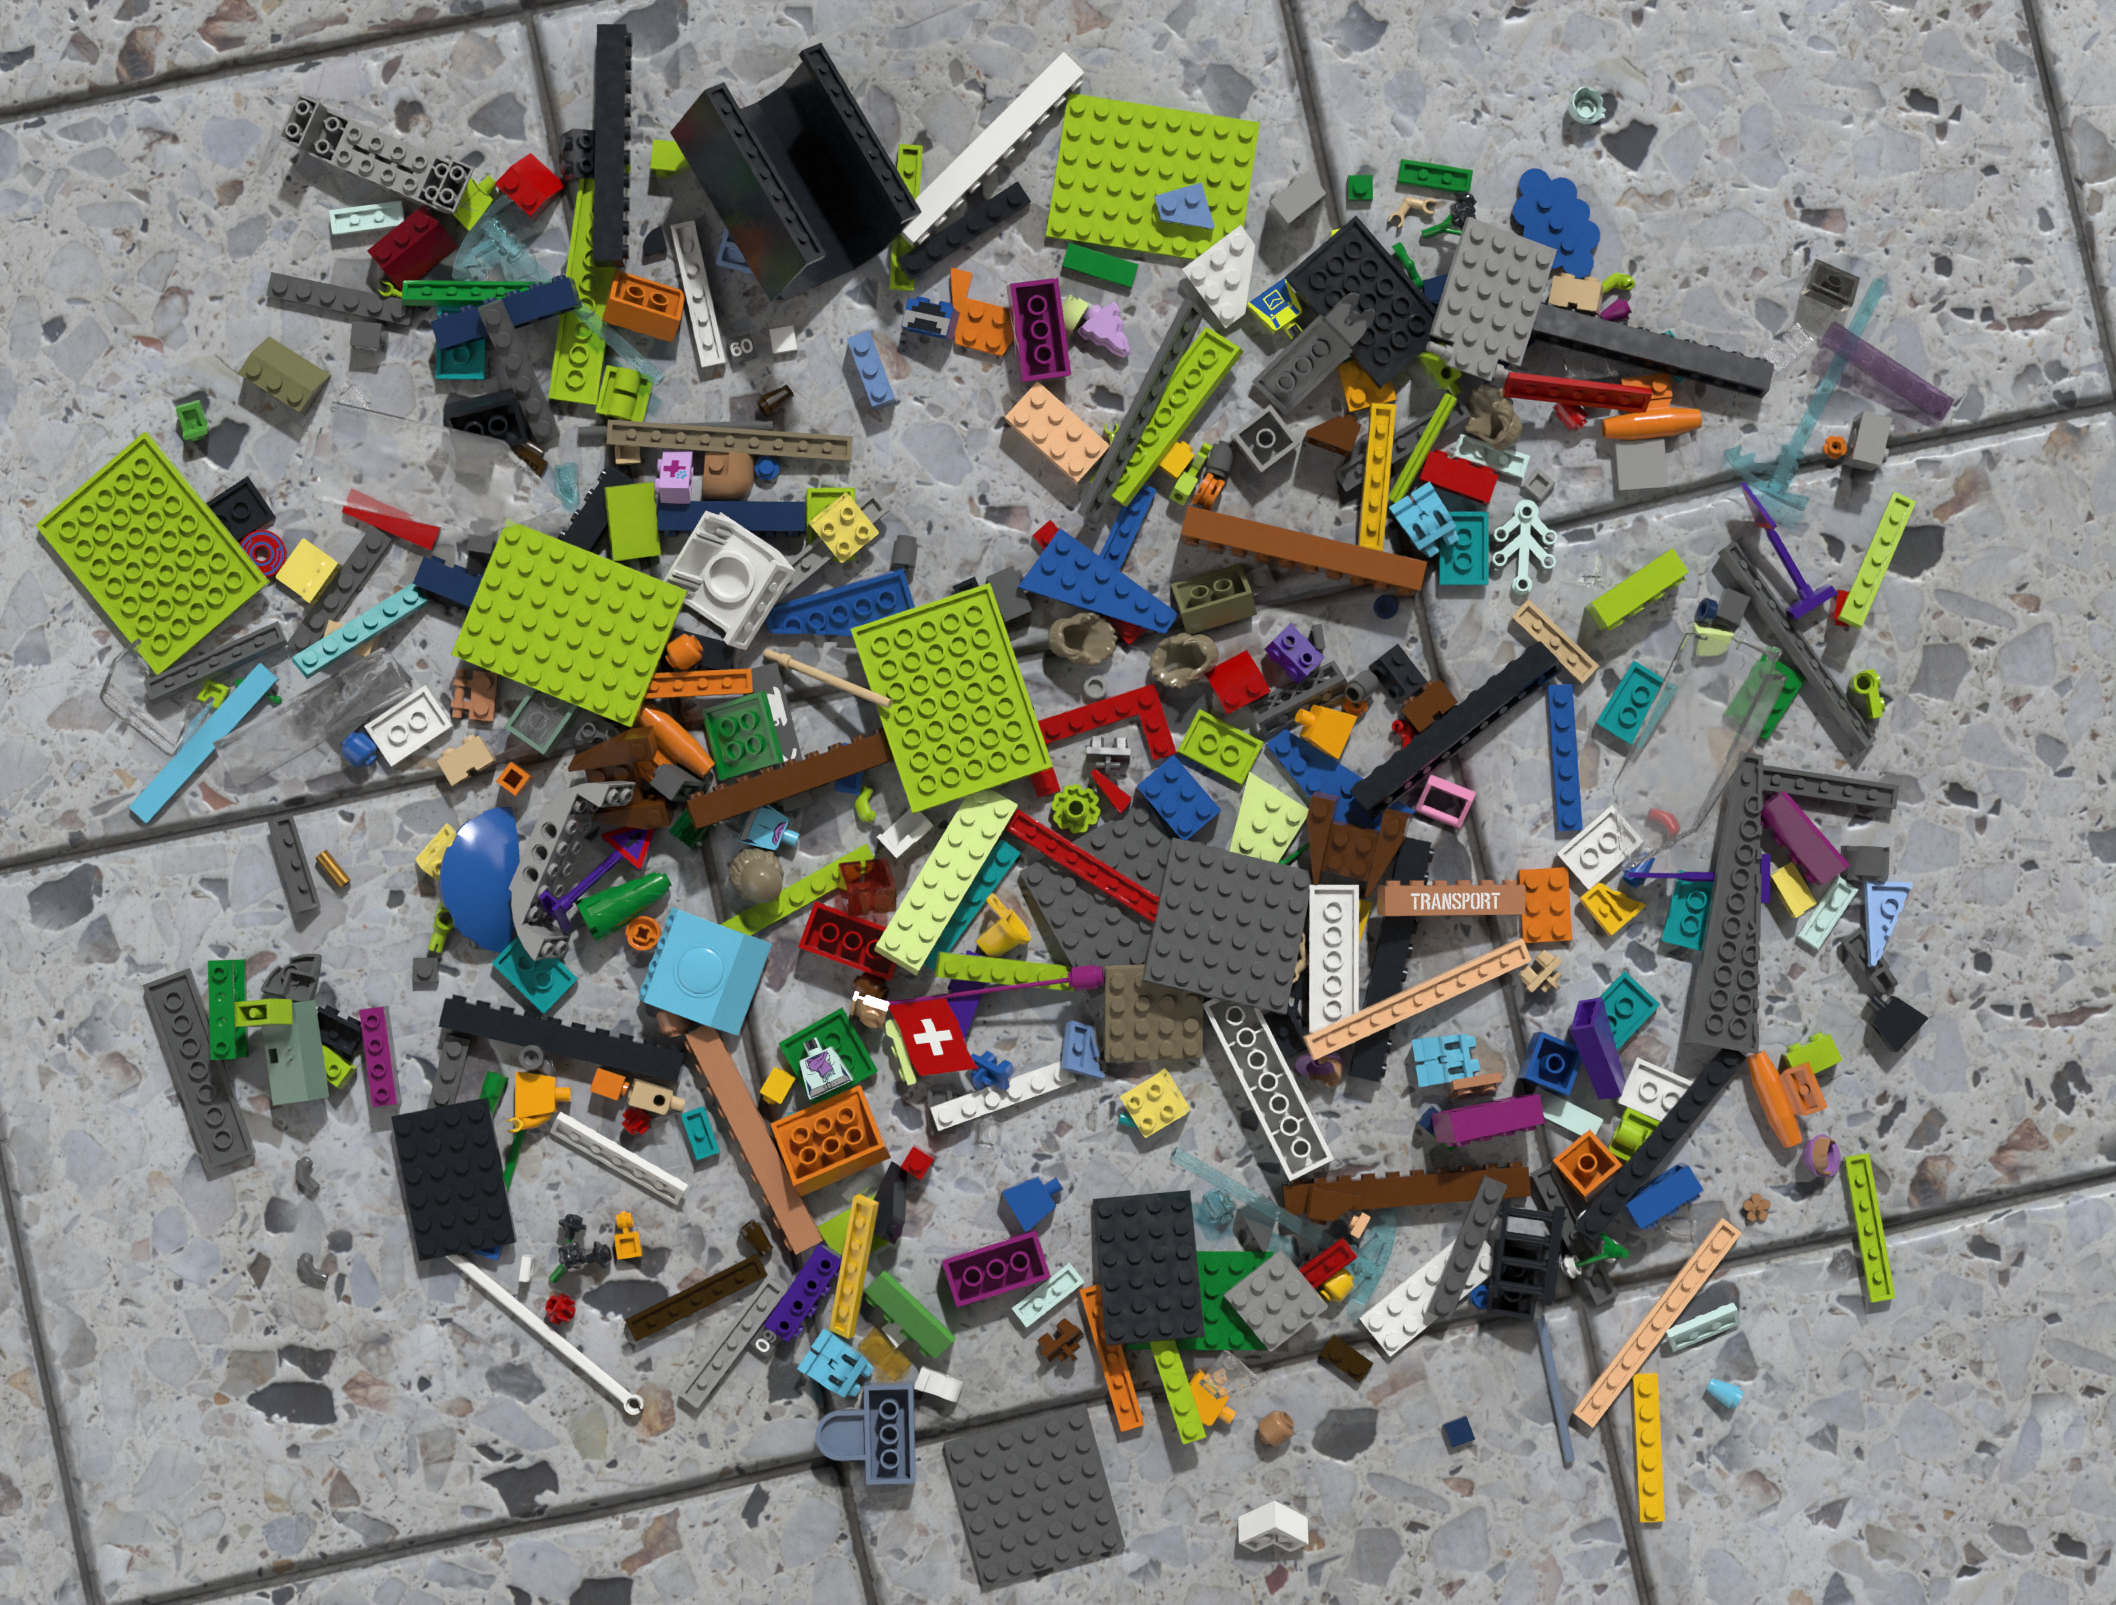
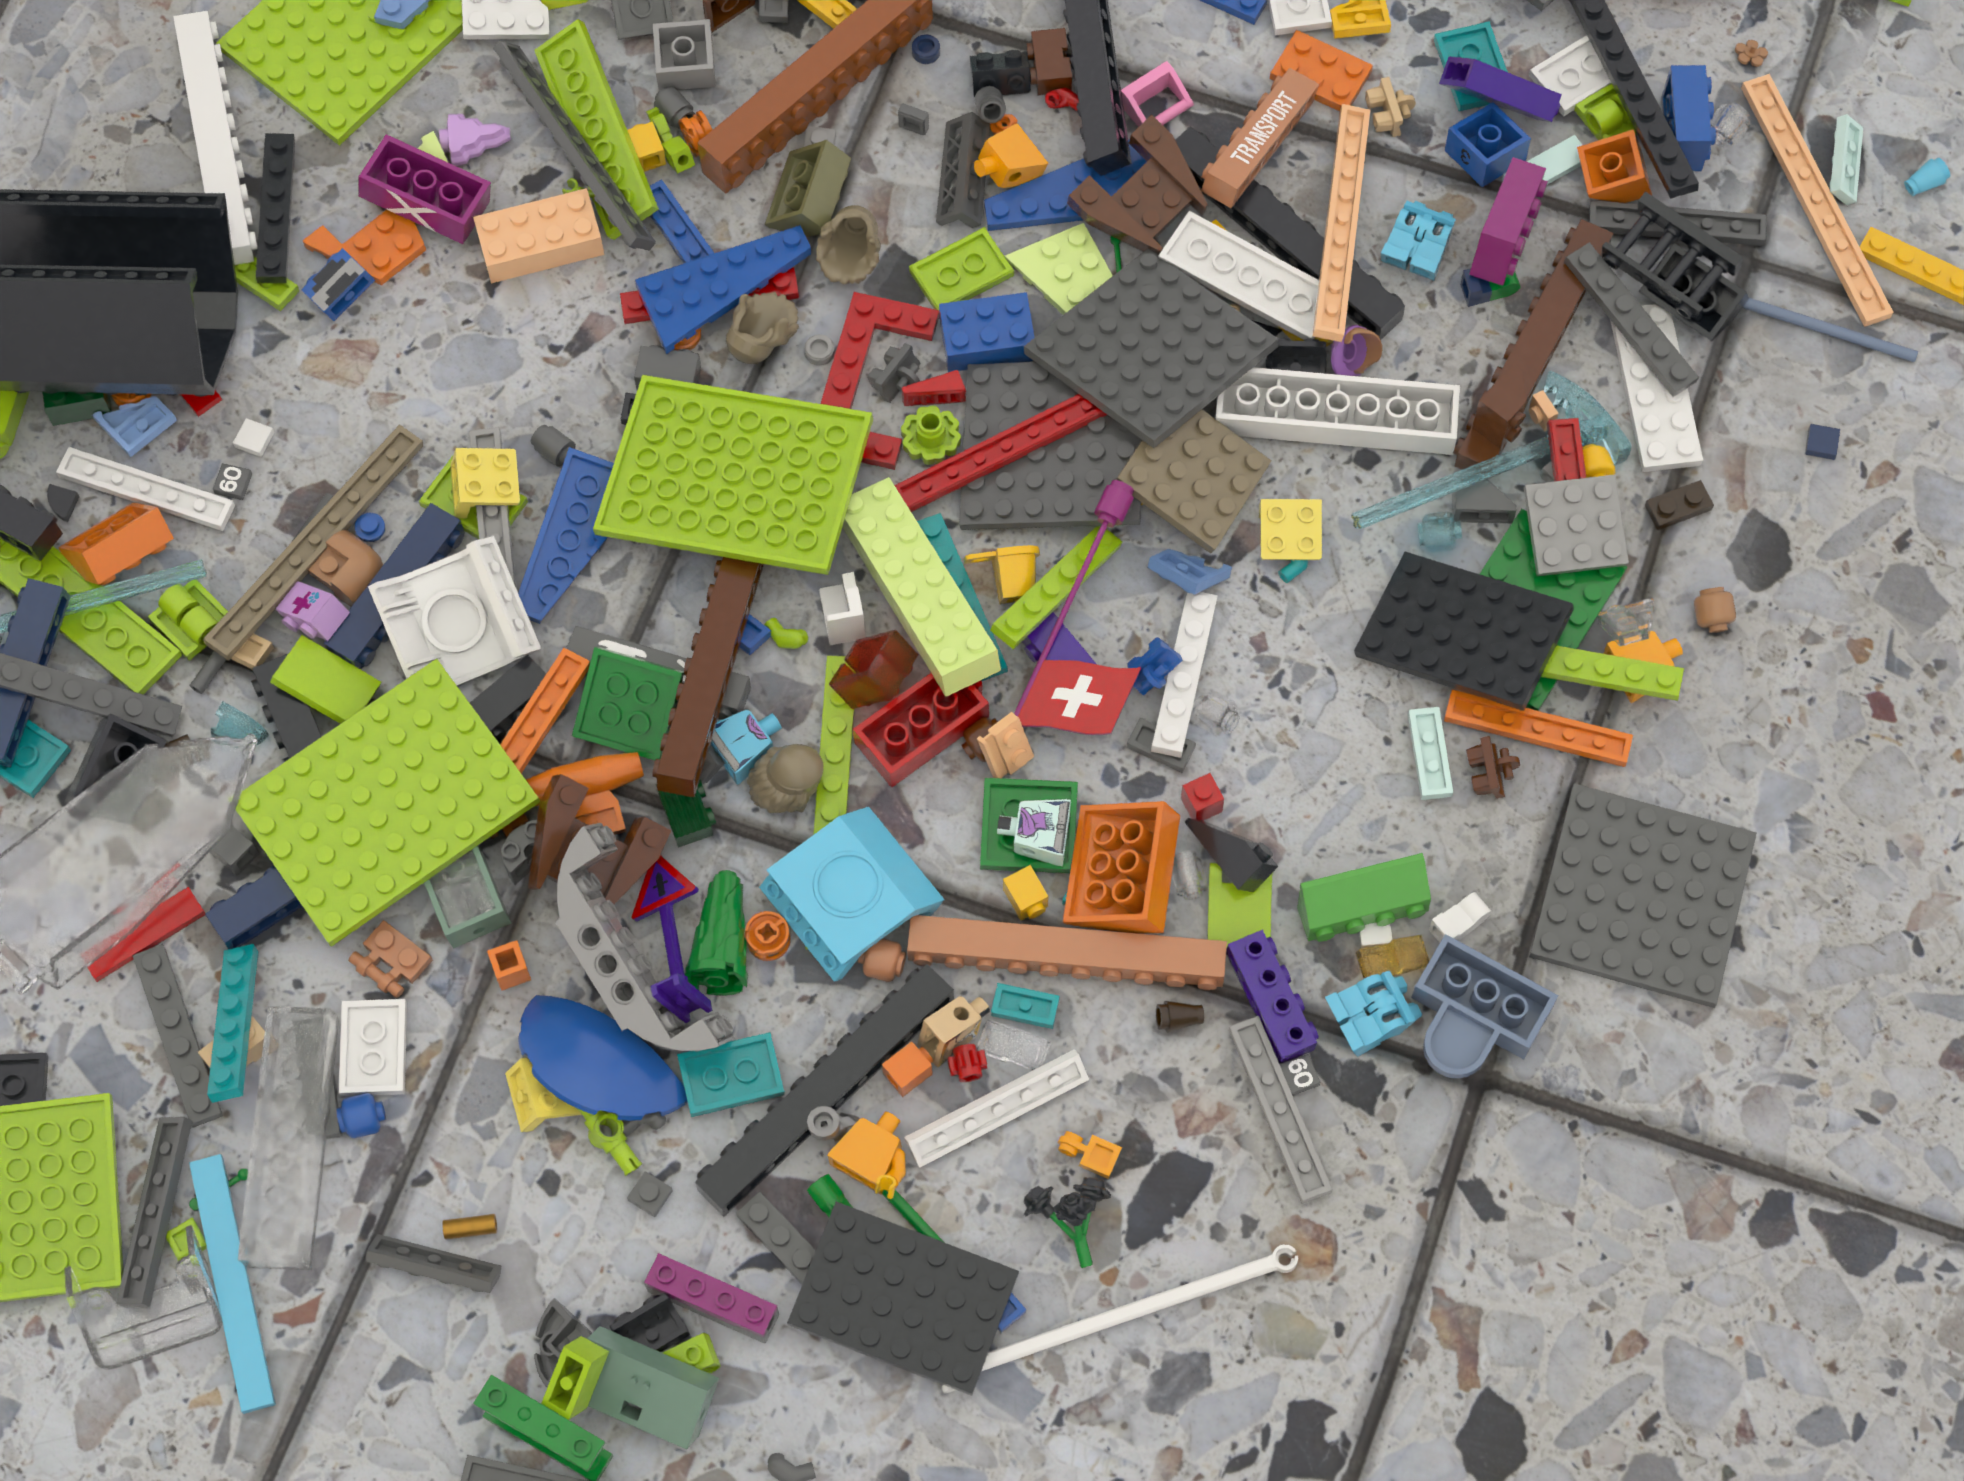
camera: 55 degrees left, 20 degrees down
(275, 547) = (73, 1074): red tile -> none
(308, 571) = (131, 1051): light yellow bracket -> none
(466, 758) = (450, 1014): tan brick -> none
(526, 1268) = (1055, 1282): white tile -> none
(560, 1308) = (1125, 1272): red gear -> none
(676, 782) = (630, 798): dark grey slope -> none
(684, 652) = (498, 702): orange head -> none
(696, 1297) = (1205, 1119): dark brown plate -> none
(774, 400) = (307, 480): dark brown cone -> none
(787, 662) = (584, 619): tan bar -> none
(853, 1266) = (1275, 919): yellow plate -> none
(871, 370) = (346, 368): medium blue brick -> none
(907, 1071) = (1072, 745): yellowish green hinge -> none
(996, 1268) = (1368, 782): magenta brick -> none
(1032, 1200) = (1318, 710): blue torso -> none
(1100, 265) = (404, 110): green tile -> none
(1237, 682) = (908, 215): red slope -> none
(1273, 1525) = (1819, 672): white panel -> none
(1294, 653) = (914, 146): dark purple brick -> none
(1475, 1085) = (1465, 222): nougat plate -> none
(1479, 1296) = (1691, 343): blue plate -> none
(1608, 1251) = (1713, 199): plant -> none

